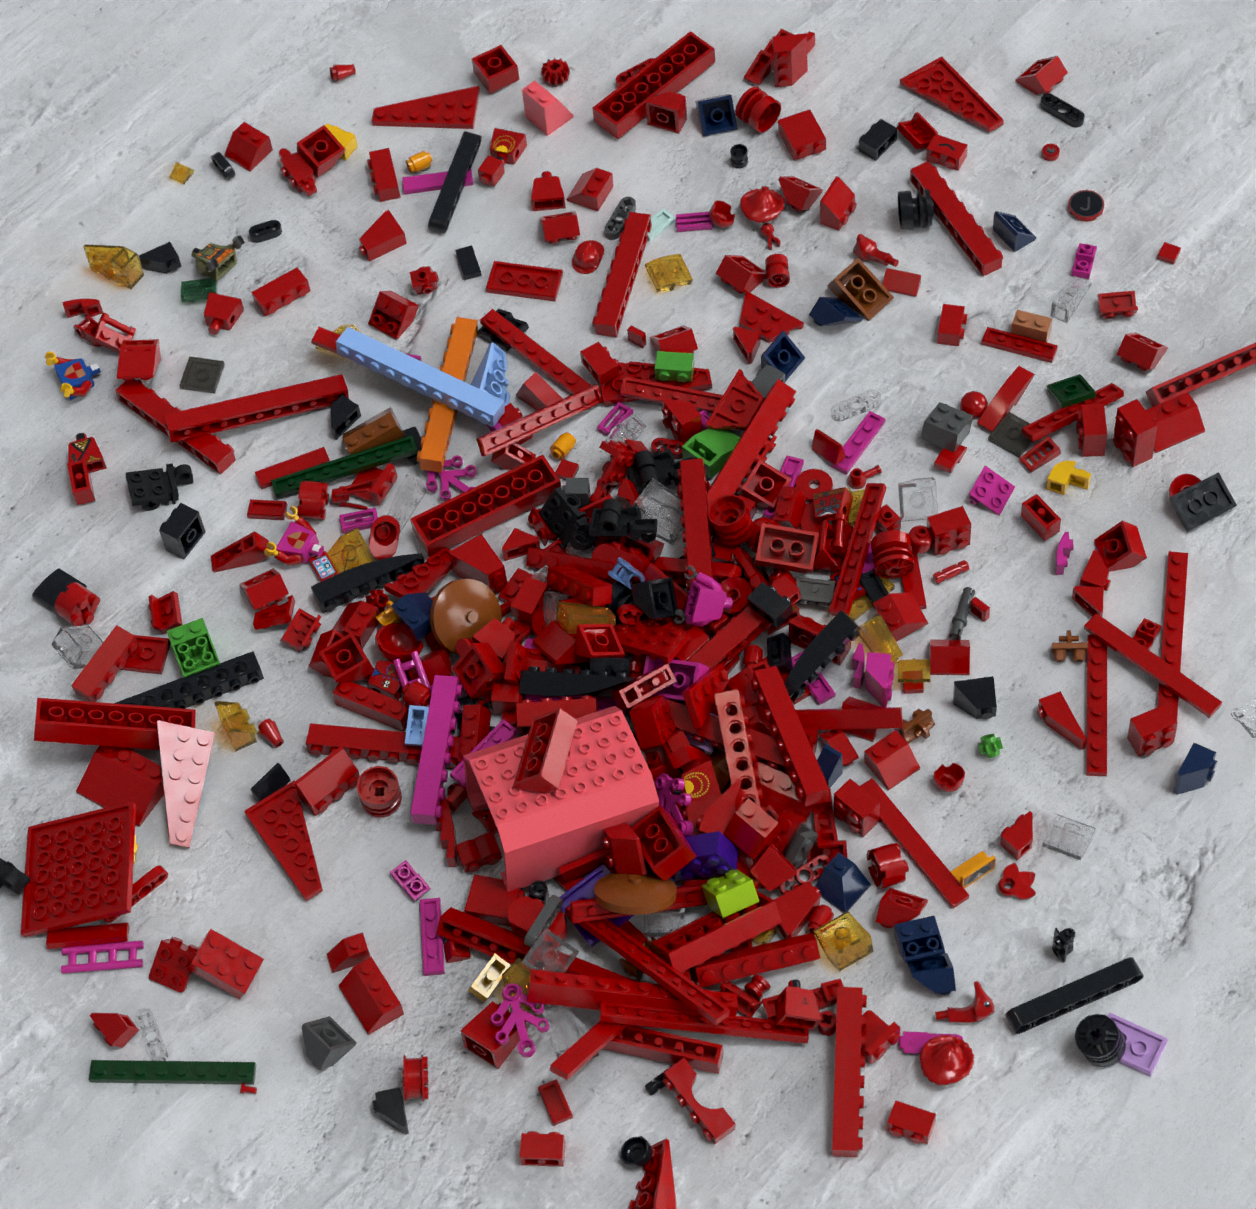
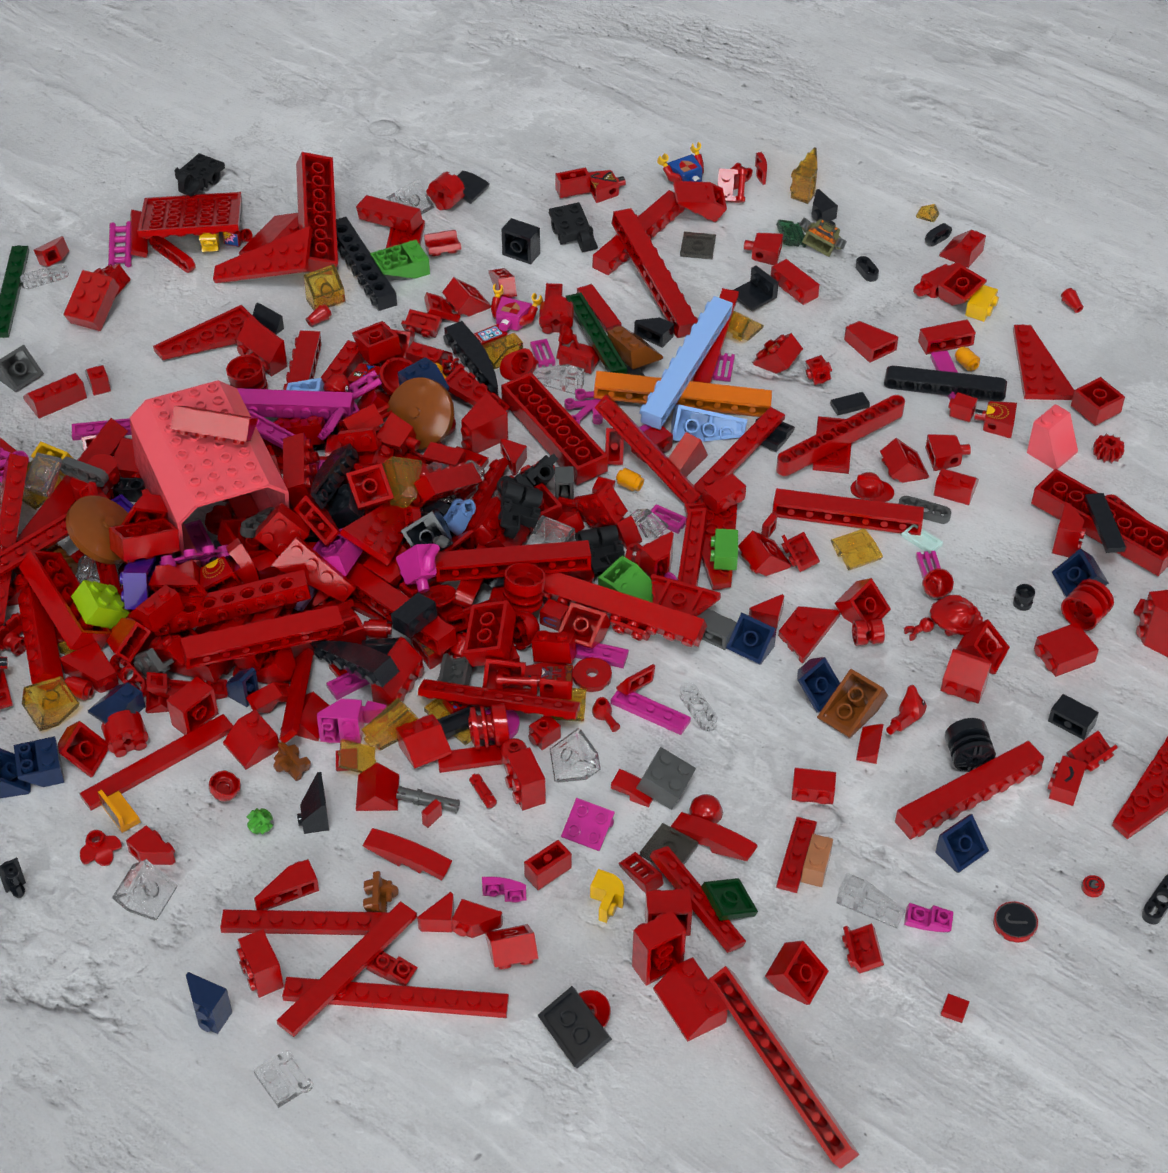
camera: 80 degrees right, 10 degrees down
(289, 325) = (758, 290): none -> black bracket
(479, 697) = (331, 423): none -> dark pink tile
(524, 268) = (840, 435): none -> red beam
(668, 80) = (1105, 523): none -> black tile
(671, 314) = (801, 551): none -> red bracket
(1025, 627) = (406, 852): none -> red slope

